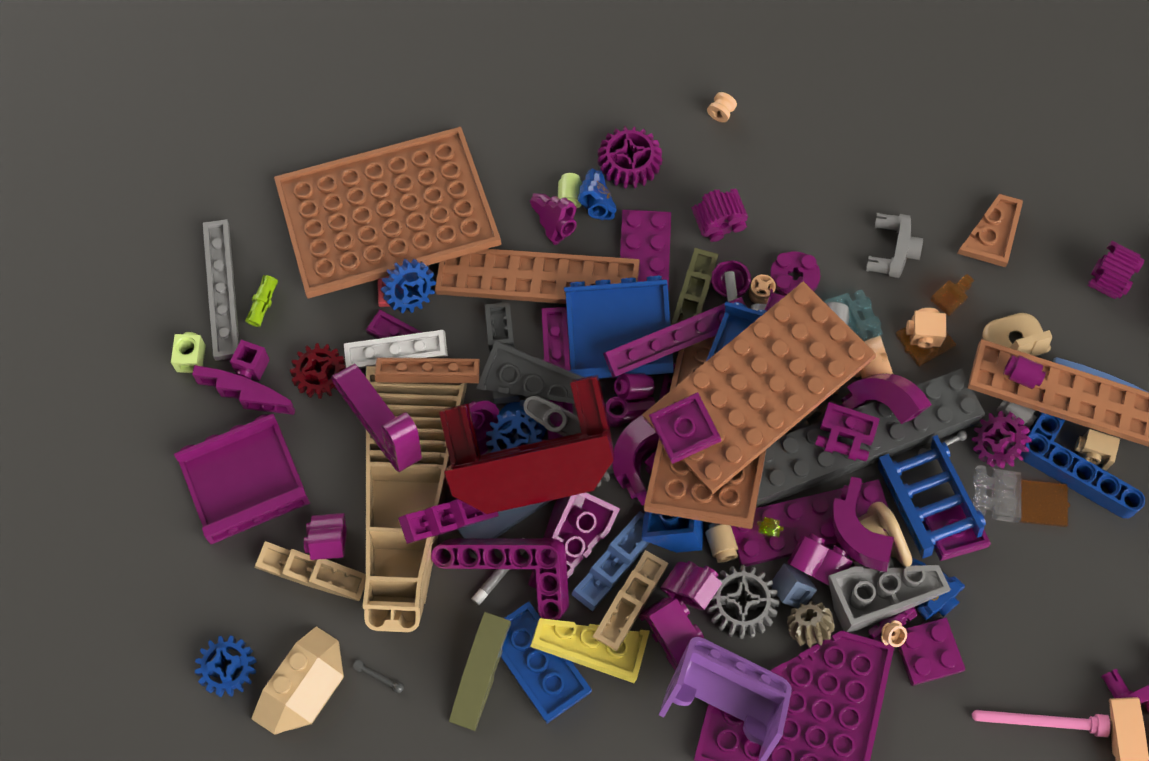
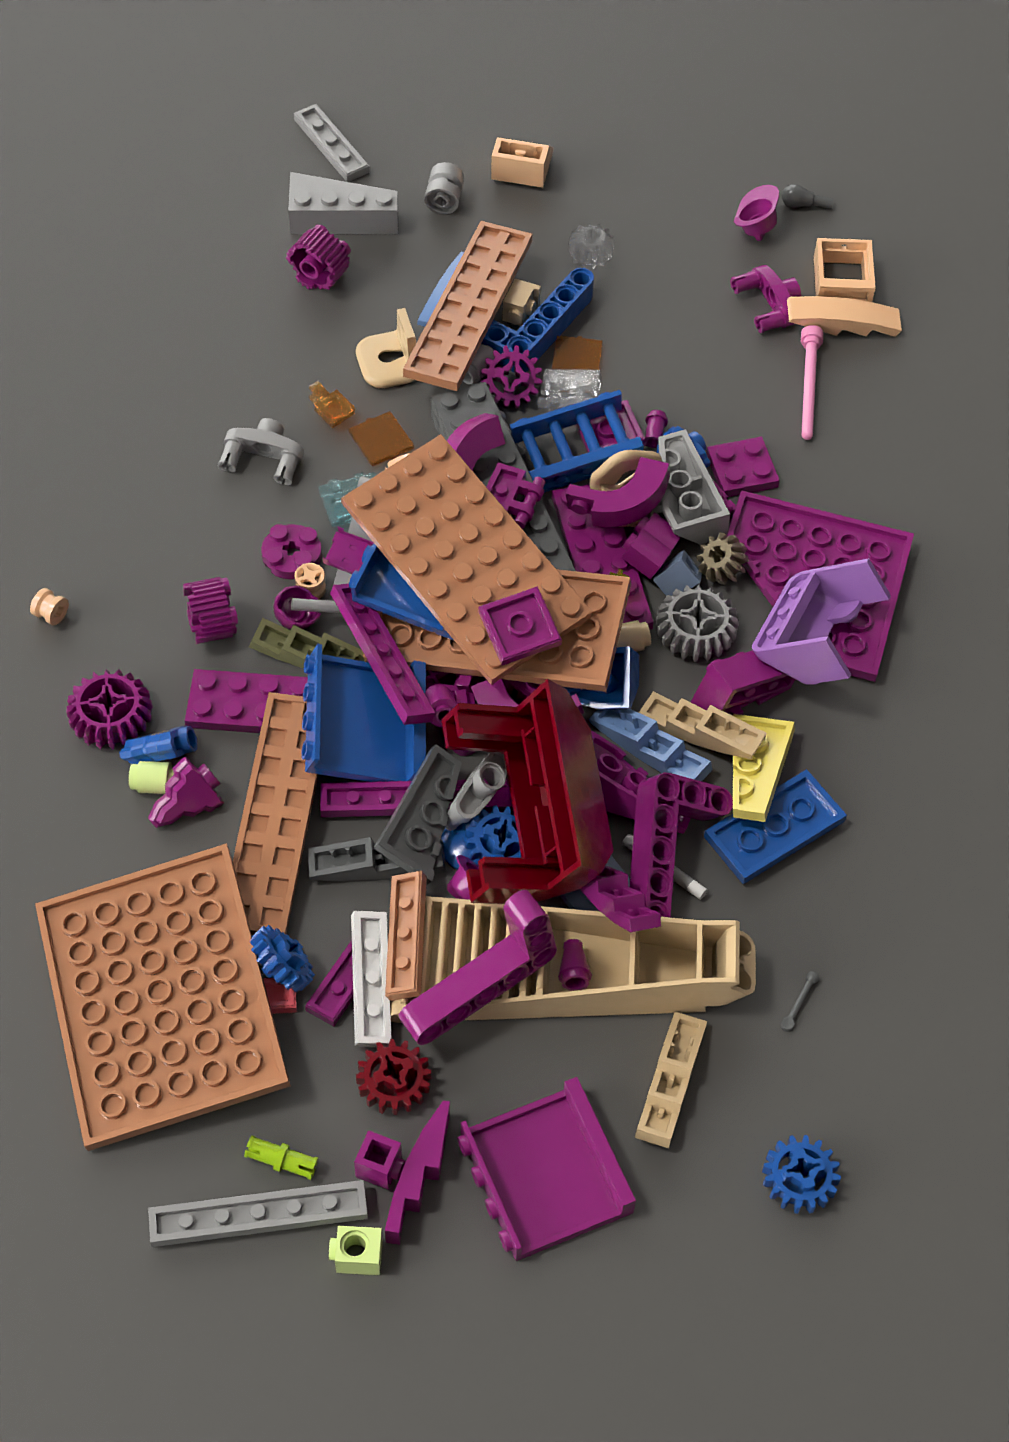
camera: 90 degrees left, 10 degrees down
(301, 684) = (817, 1083): tan wedge -> none
(326, 536) = (631, 1050): magenta brick -> none
(404, 496) = (574, 967): none -> magenta cone
(479, 671) = (795, 880): olive slope -> none
(692, 584) = (684, 662): magenta brick -> none
(893, 634) = (730, 487): light nougat plate -> none
(927, 328) = (374, 427): light nougat brick -> none
(963, 570) = (656, 422): none -> magenta pin
(994, 234) = (253, 360): nougat wing -> none
(1024, 371) = (448, 331): magenta brick -> none

